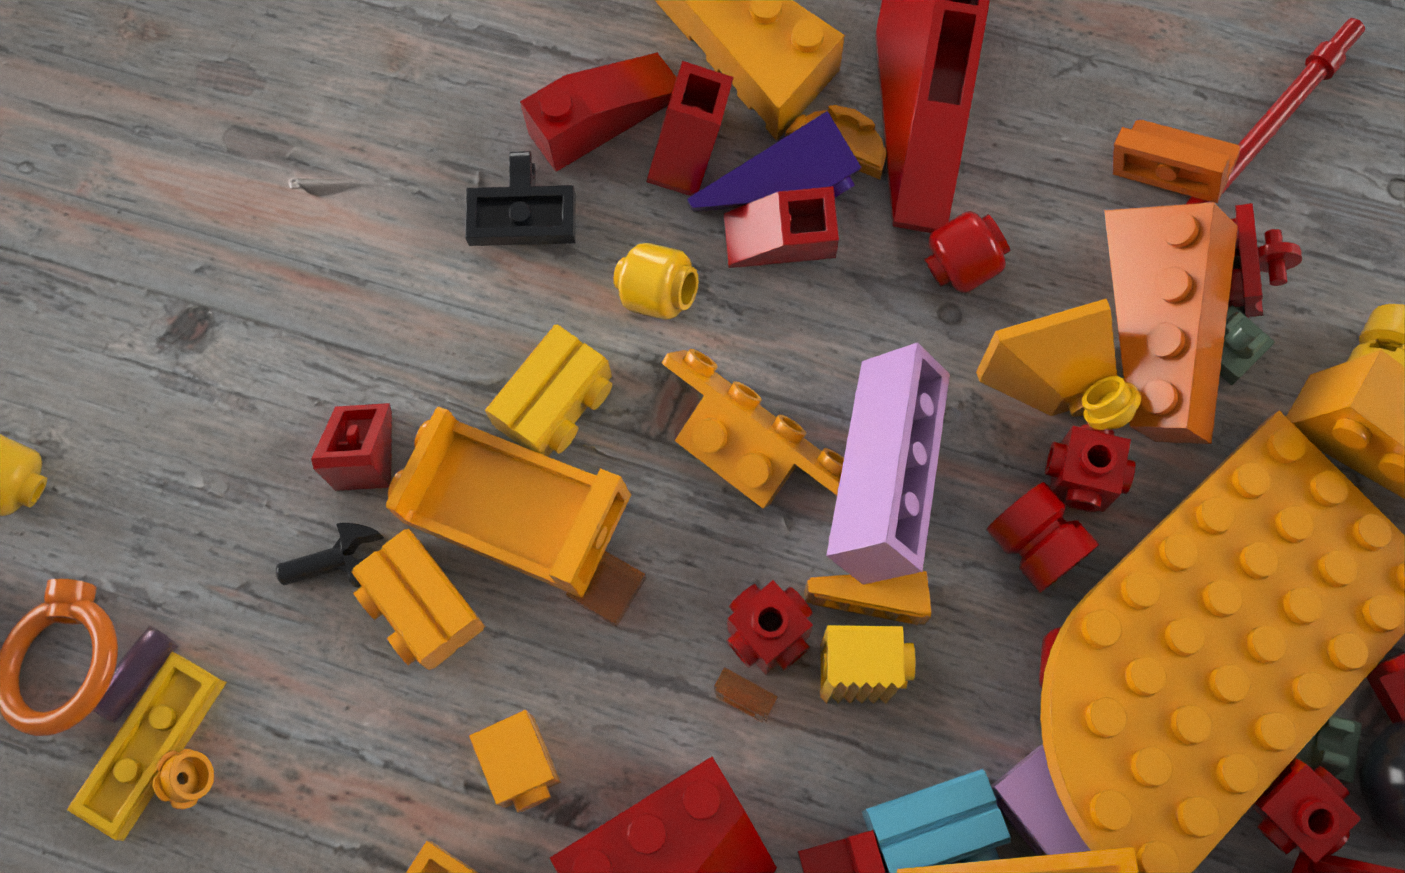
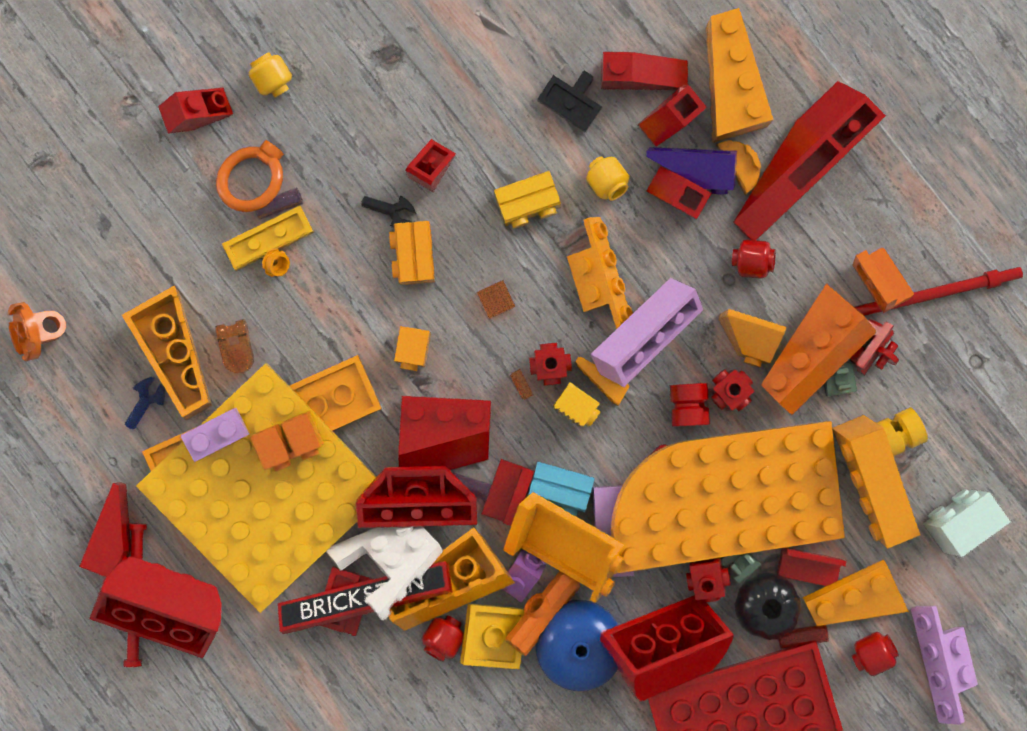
camera: 30 degrees right, 15 degrees up
(508, 502) = (478, 236): light orange panel -> none
(1110, 403) = (757, 370): yellow plate -> none

